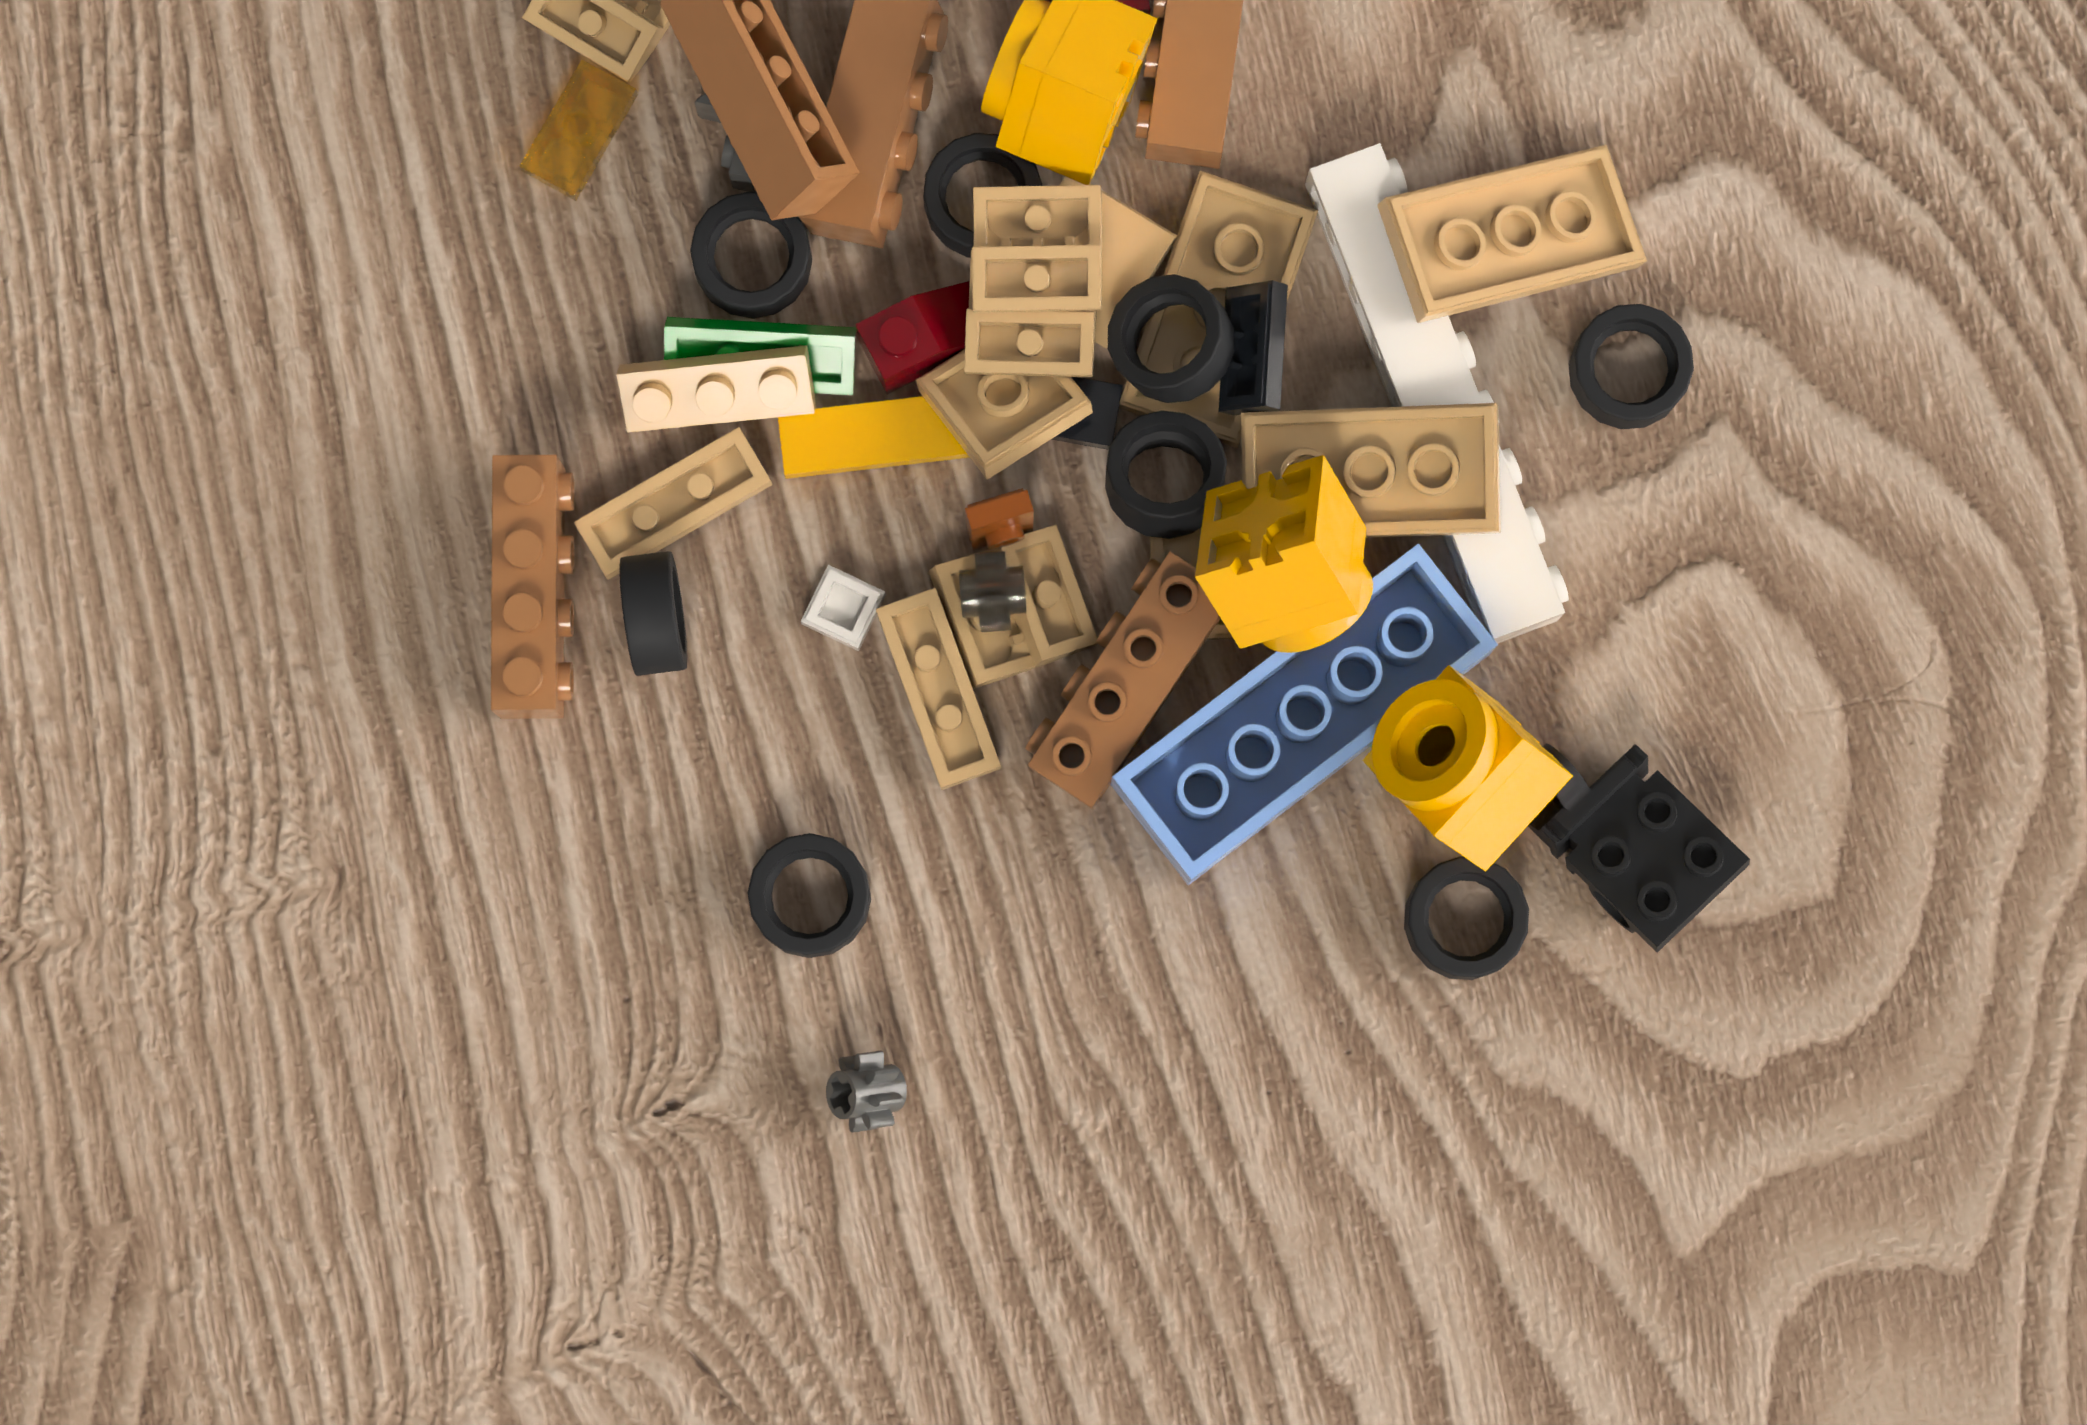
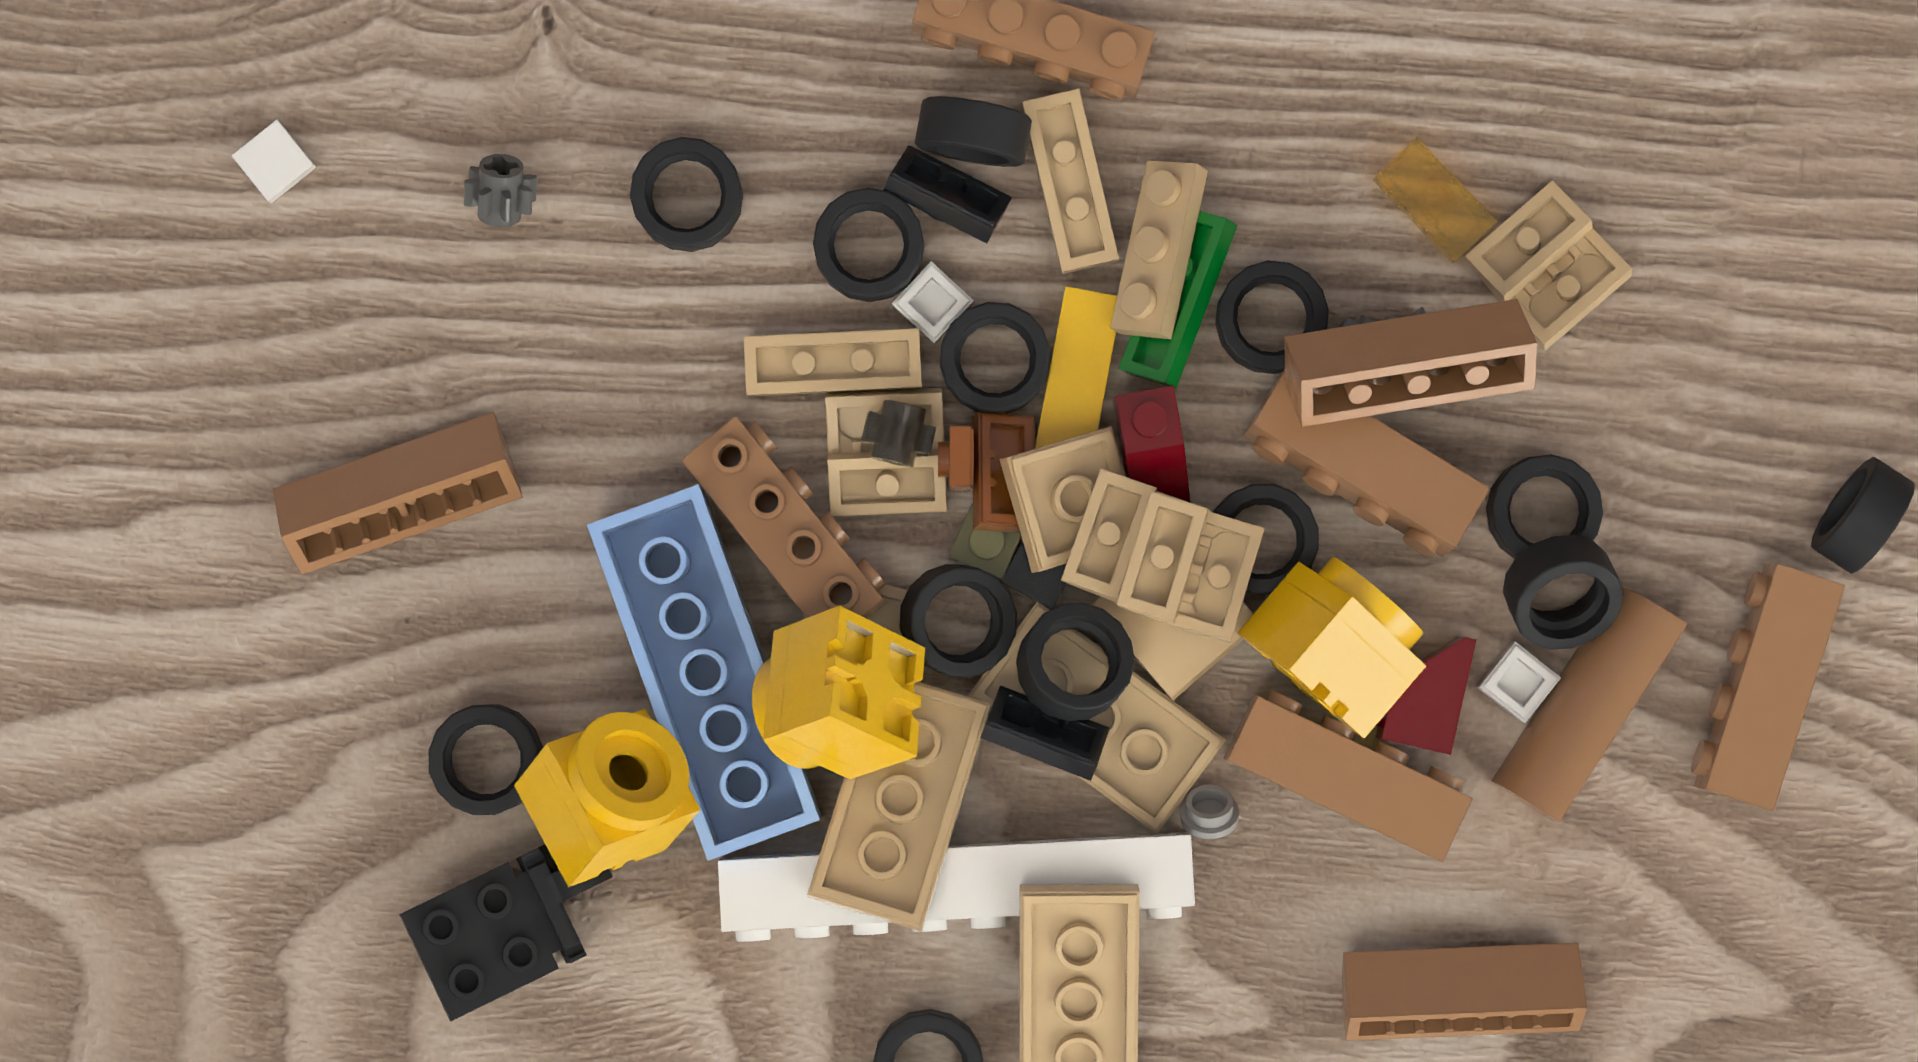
camera: 110 degrees right, 5 degrees up
(725, 624) = (947, 194): none -> black plate
(797, 642) = (859, 201): none -> black tyre
(870, 476) = (995, 314): none -> black tyre
(908, 1347) = (274, 161): none -> white tile
(962, 483) = (997, 438): none -> dark orange plate
(1074, 475) = (984, 549): none -> olive plate
(1218, 1101) = (396, 493): none -> medium nougat brick
(1279, 163) = (1209, 812): none -> light grey plate

